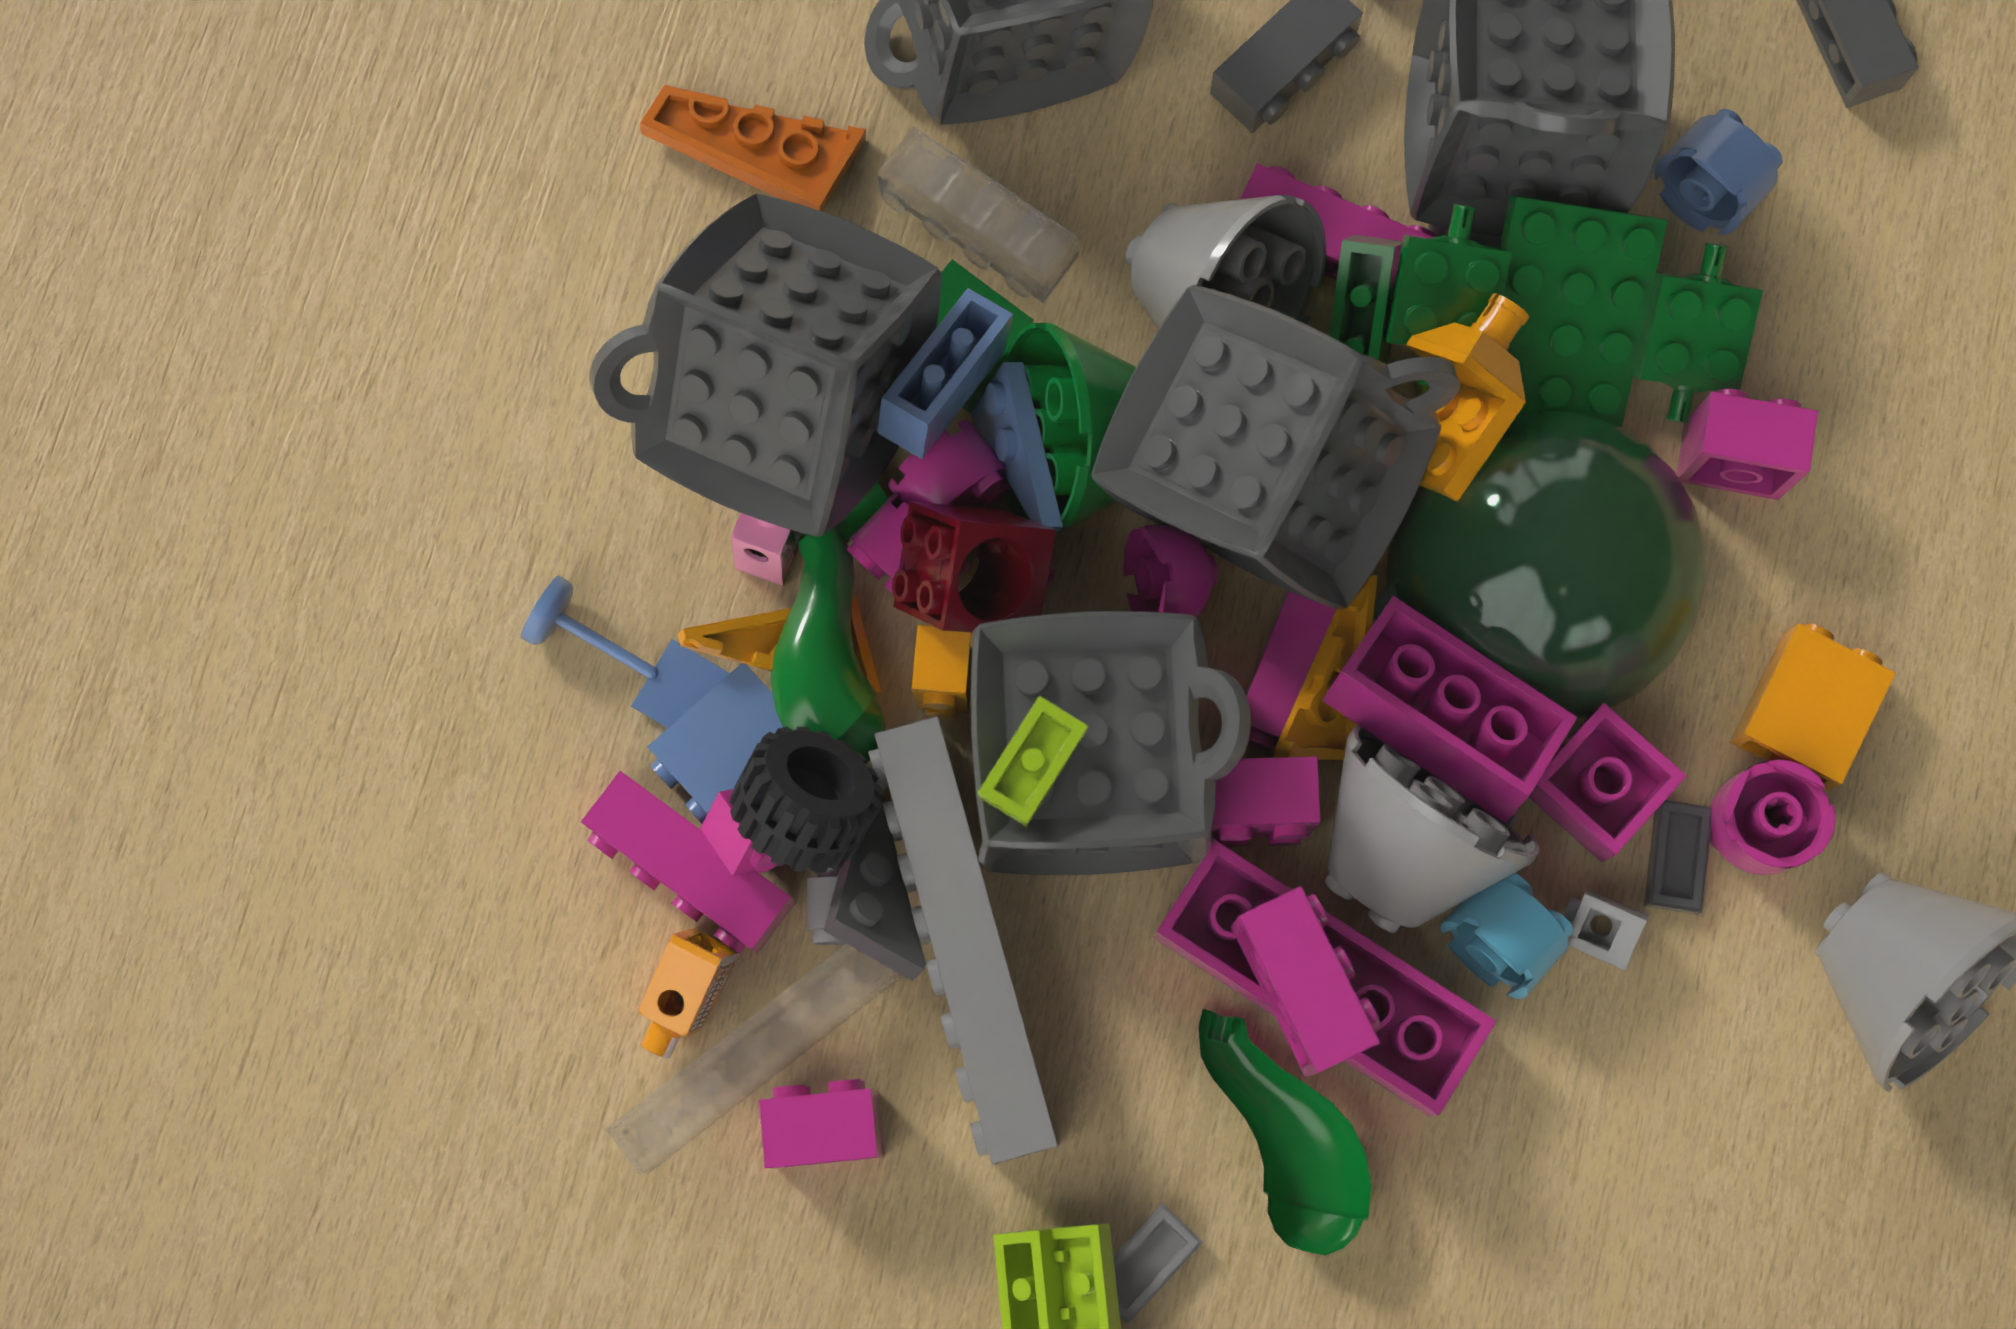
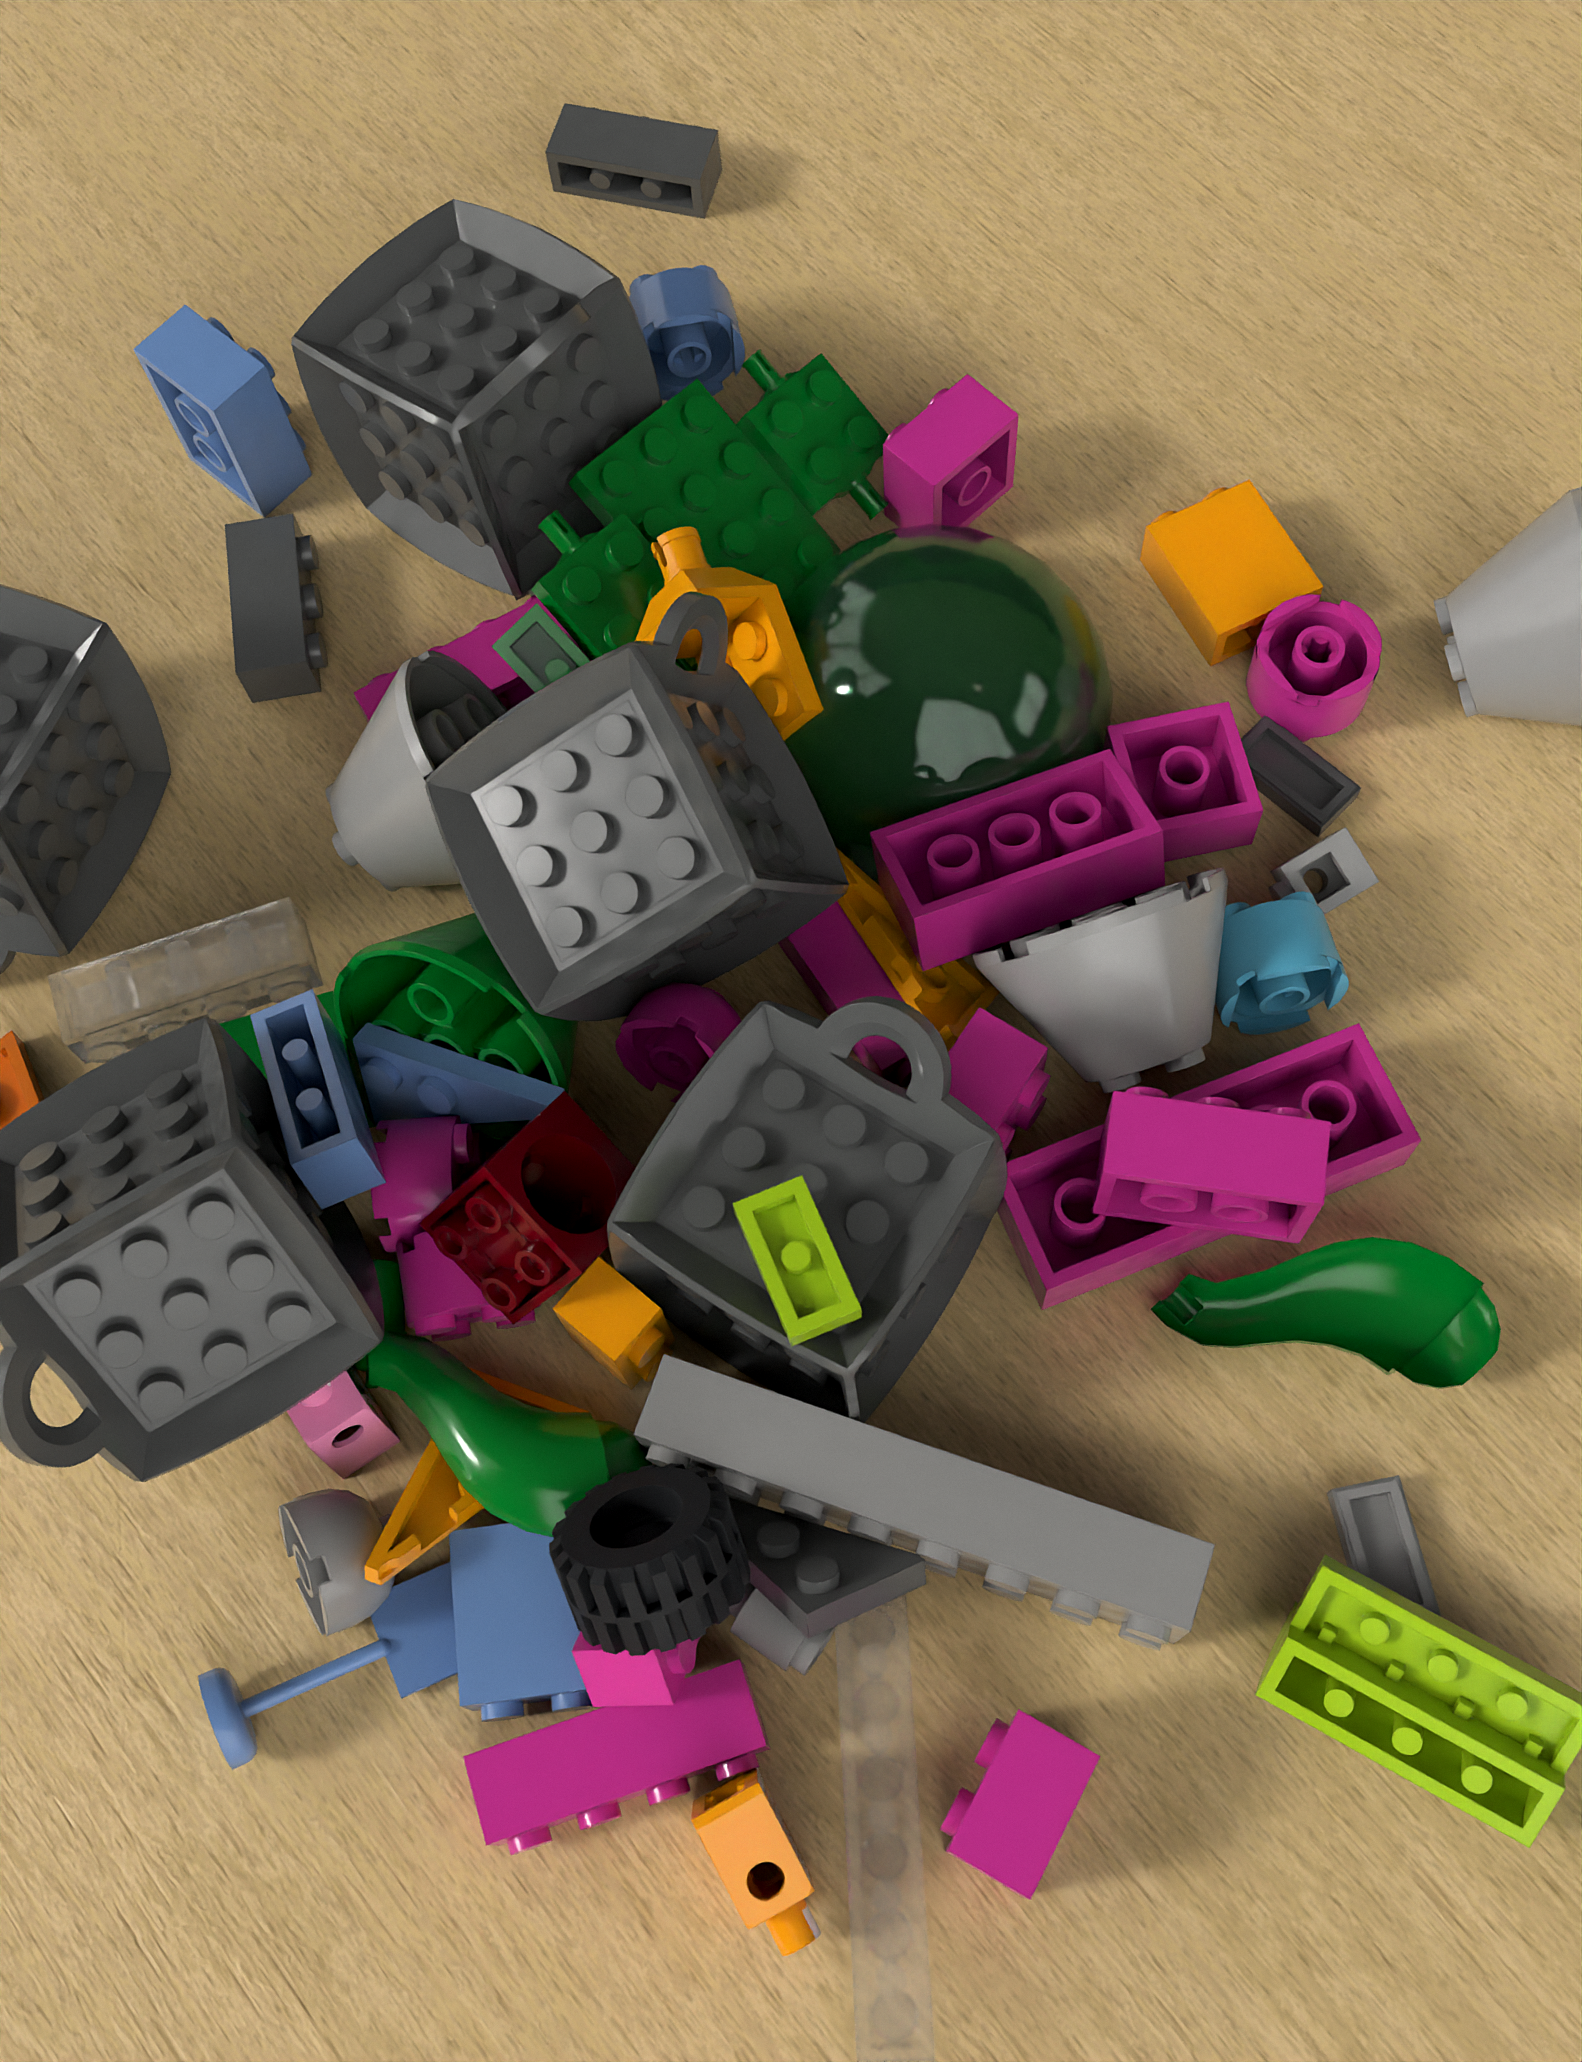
camera: 50 degrees left, 10 degrees down
(688, 597) = (331, 1541): none -> light grey cylinder

